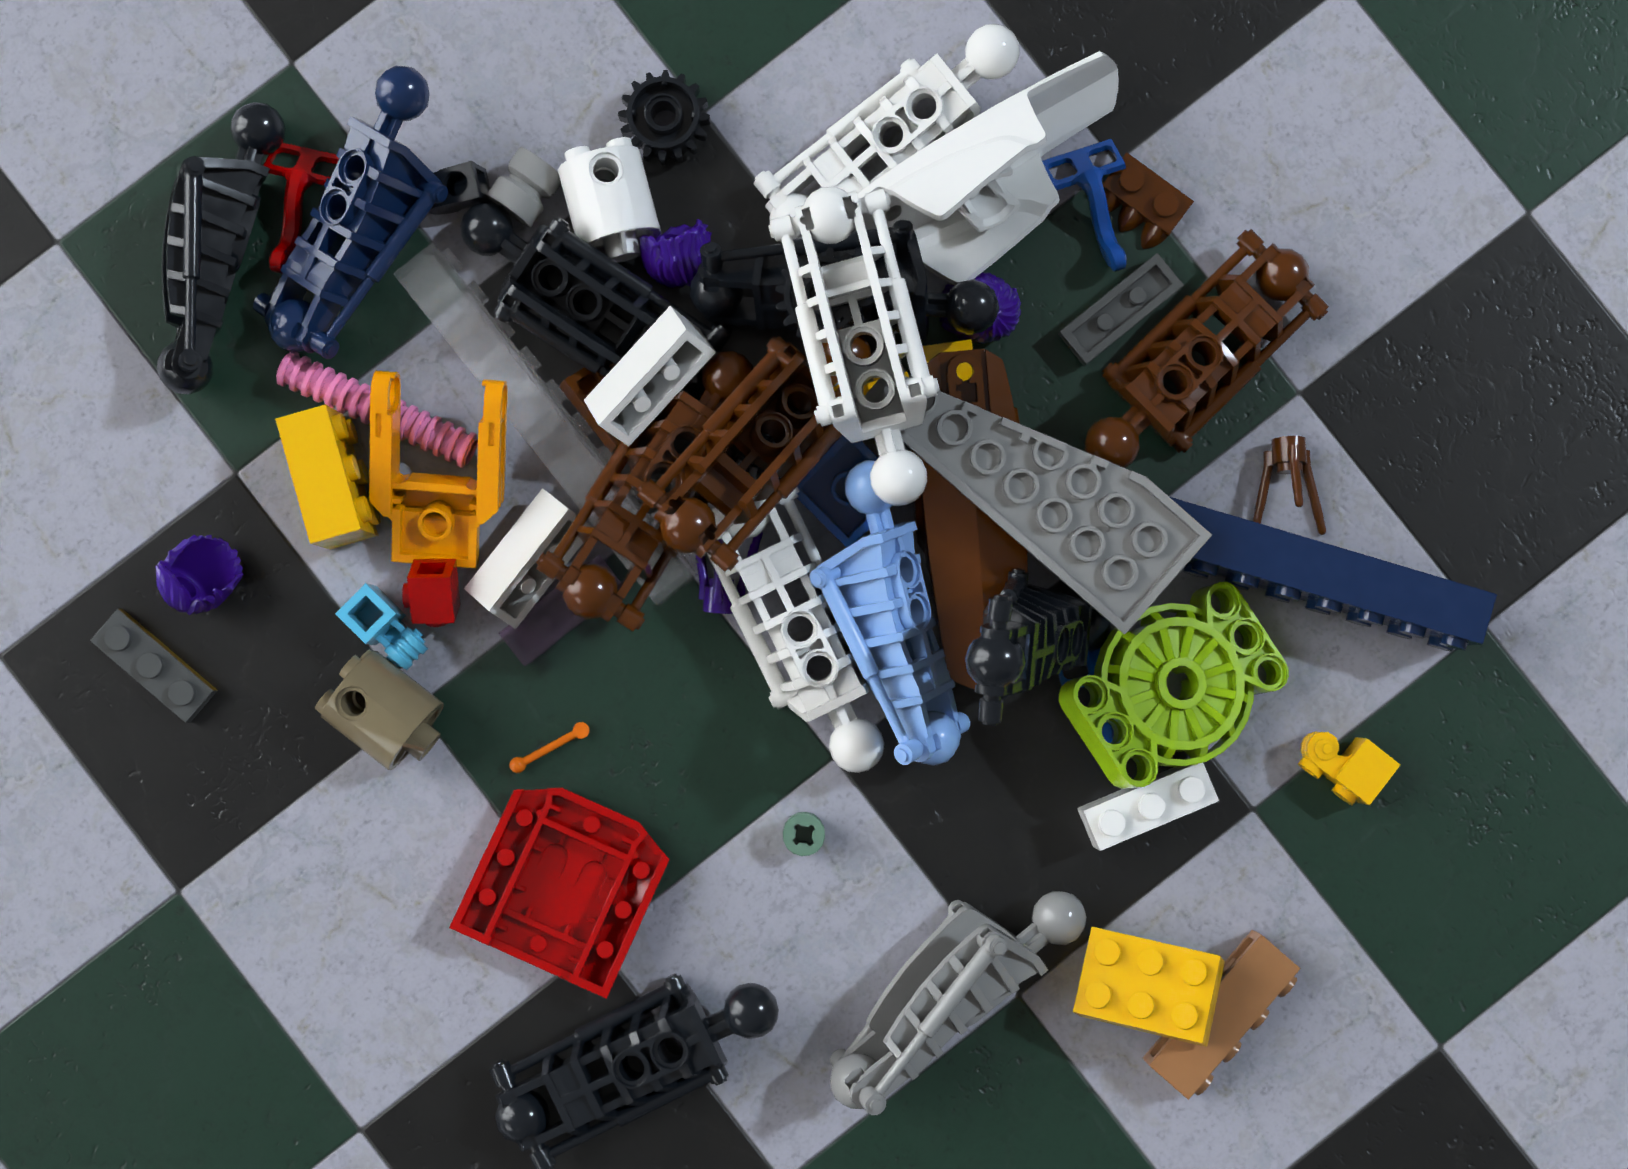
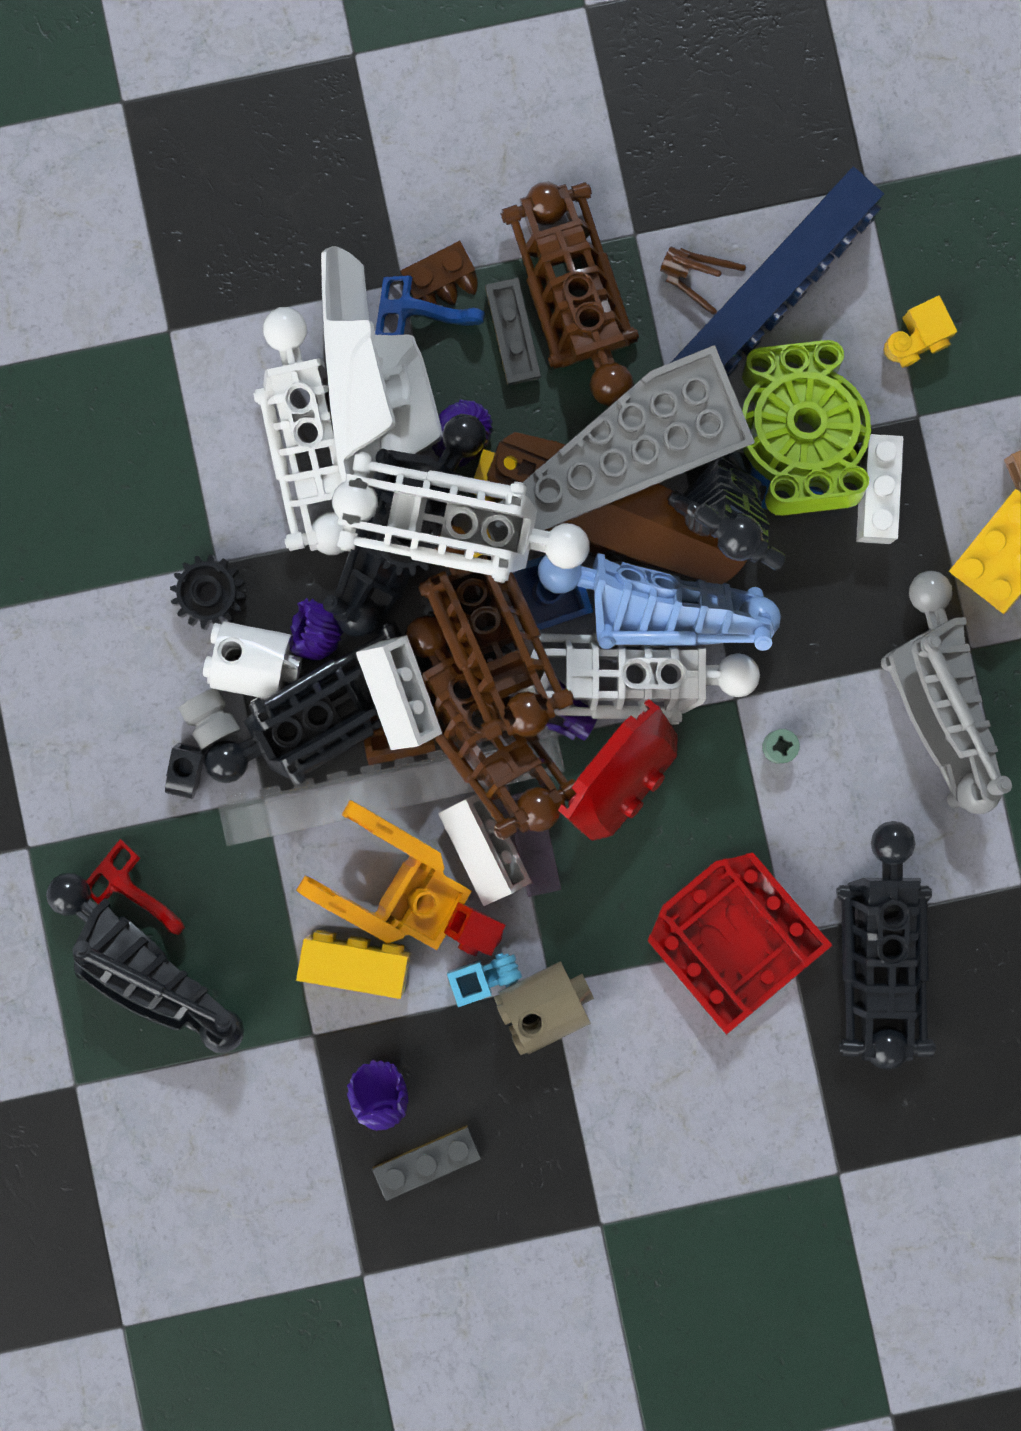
camera: 65 degrees left, 0 degrees up
(355, 399) = (310, 914): bright pink piece -> none
(360, 226) = (167, 834): dark blue piece -> none
(580, 731) = (629, 929): orange hinge -> none
(680, 668) = (622, 774): none -> red wedge

